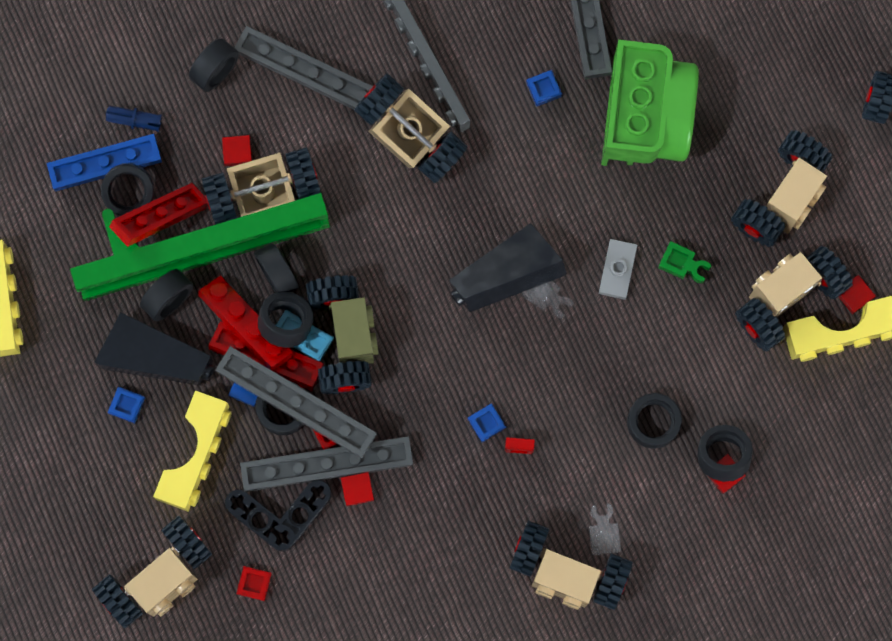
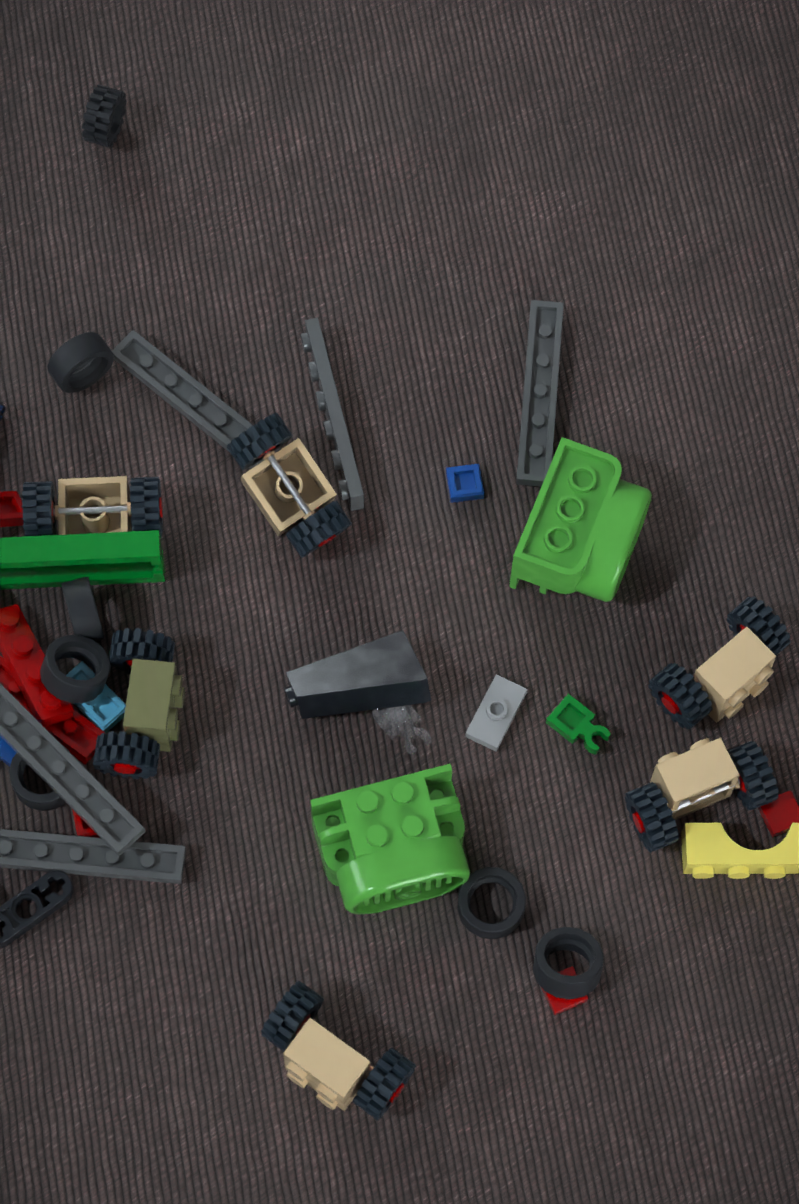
camera: 15 degrees right, 10 degrees down
(236, 150) = (80, 464): red tile -> none
(357, 489) = (105, 895): red tile -> none
(486, 423) = (285, 855): blue tile -> none
(519, 445) = (317, 891): red tile -> none
(569, 394) = (392, 841): none -> bright green brick
(604, 536) = (392, 1027): clear plate -> none

